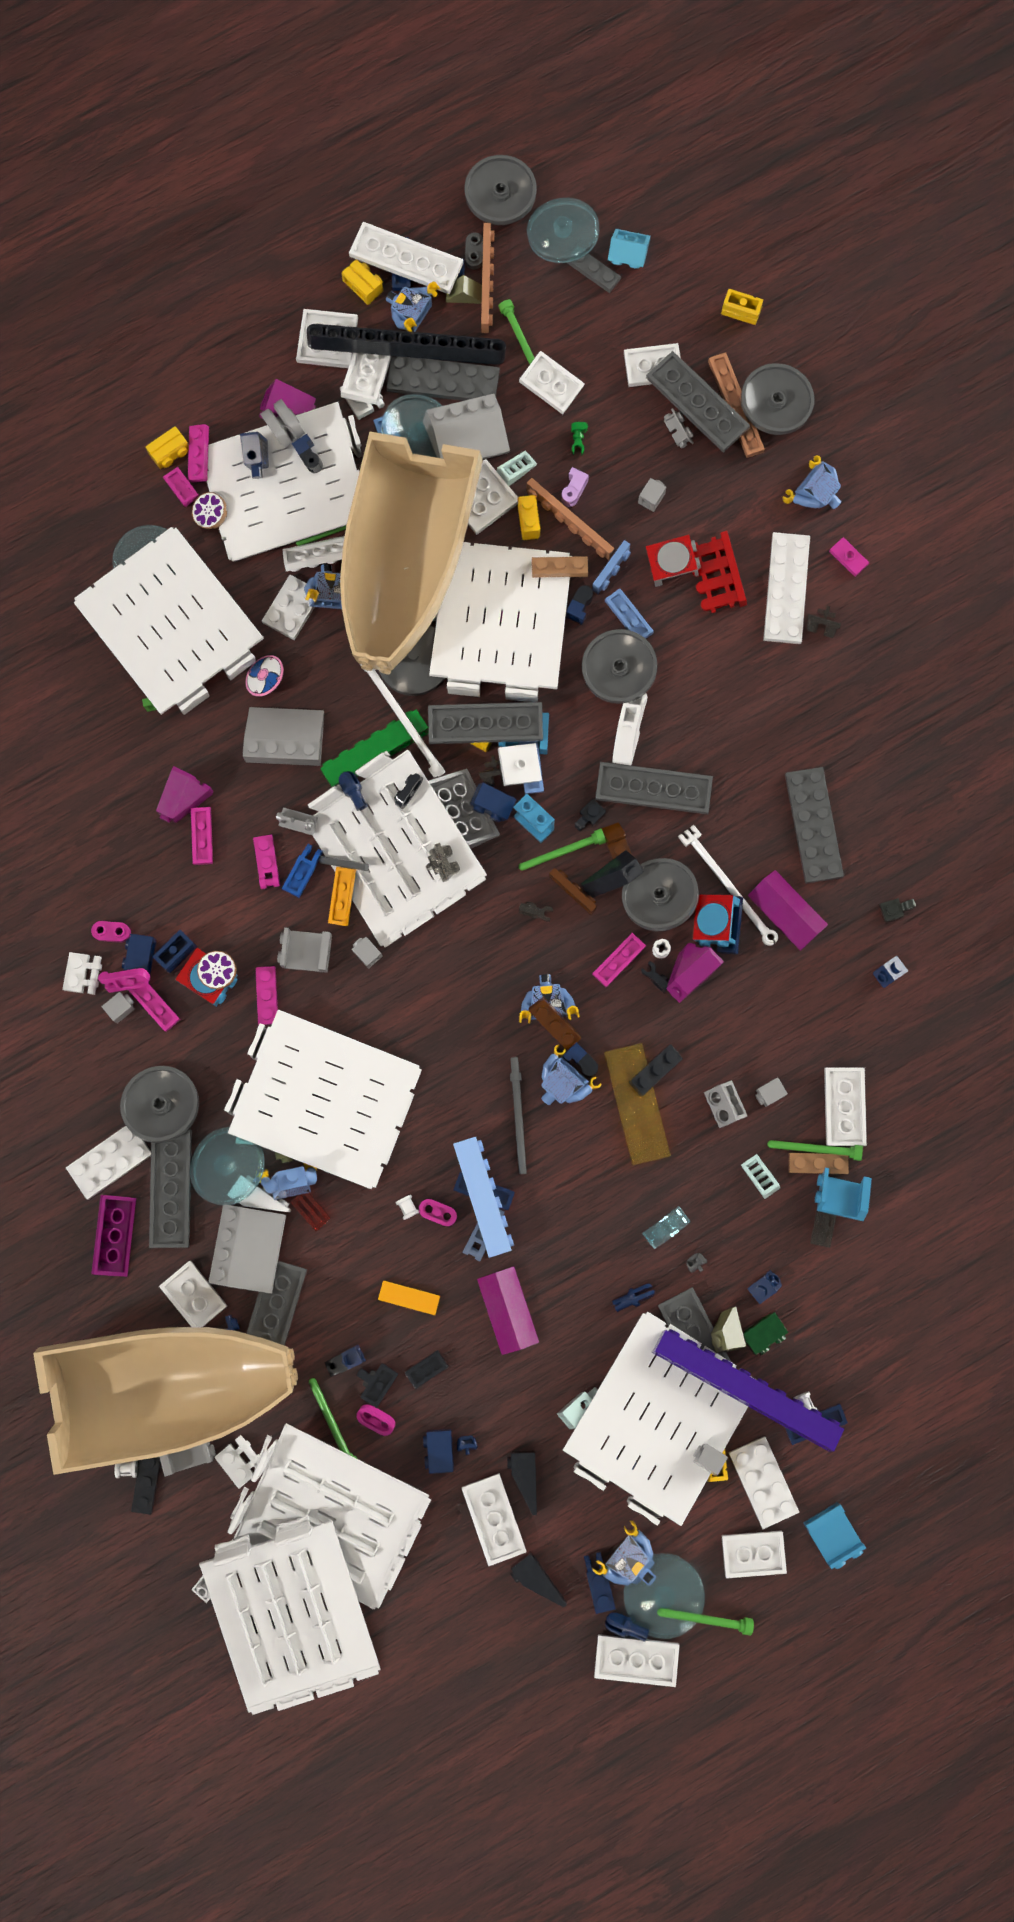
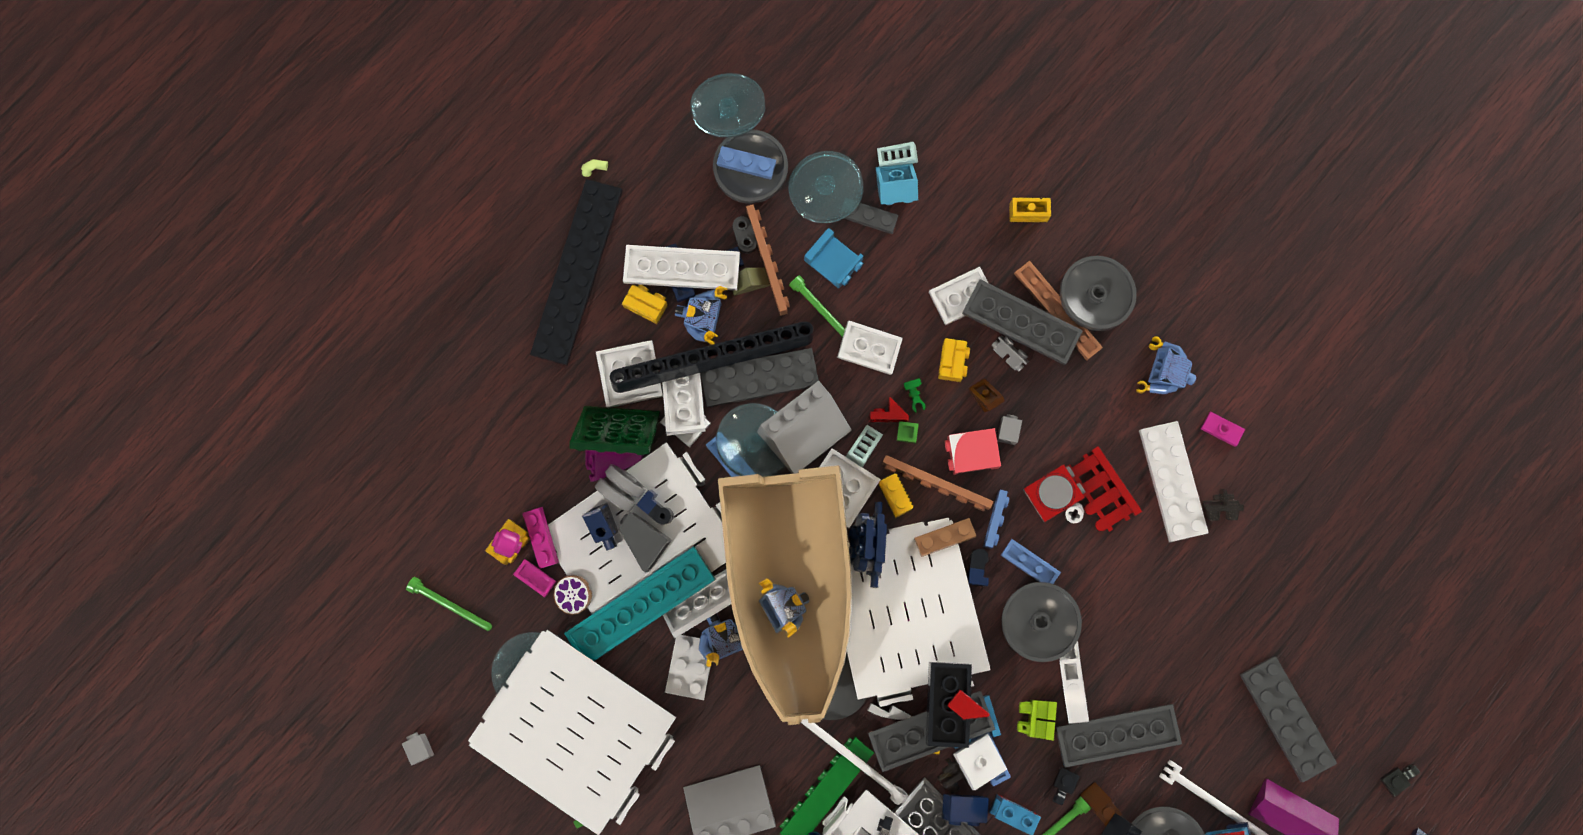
camera: 20 degrees left, 0 degrees up
(28, 597) = (417, 748): none -> light grey brick
(74, 461) = (416, 586): none -> bright green piece
(166, 442) = (506, 543): none -> dark pink head
(264, 675) = (688, 751): shield -> none
(267, 535) = (641, 605): none -> teal plate
(288, 479) = (643, 540): none -> dark grey slope
(295, 376) = (615, 430): none -> dark green plate
(311, 236) = (576, 272): none -> black plate
(359, 146) = (588, 167): none -> yellowish green arm
(391, 572) = (783, 606): none -> torso
(443, 695) = (894, 713): none -> white slope
(491, 536) = (868, 544): none -> dark blue piece
(497, 183) = (746, 162): none -> medium blue plate
(499, 129) = (728, 105): none -> clear light blue dish
(507, 697) = (943, 725): none -> black brick
(520, 699) = (966, 707): none -> red tile
(546, 296) = (833, 259): none -> dark azure panel
(551, 448) = (894, 414): none -> red slope
(559, 467) = (907, 432): none -> bright green plate
(577, 484) = (931, 448): lavender leg -> none
(589, 750) = (1034, 727): none -> lime hips
(612, 501) = (973, 451): none -> coral panel
(623, 417) = (953, 360): none -> yellow brick
(640, 217) = (898, 161): none -> light aqua slope
(642, 459) = (986, 395): none -> reddish brown slope
(680, 586) = (1075, 519): none -> white bush

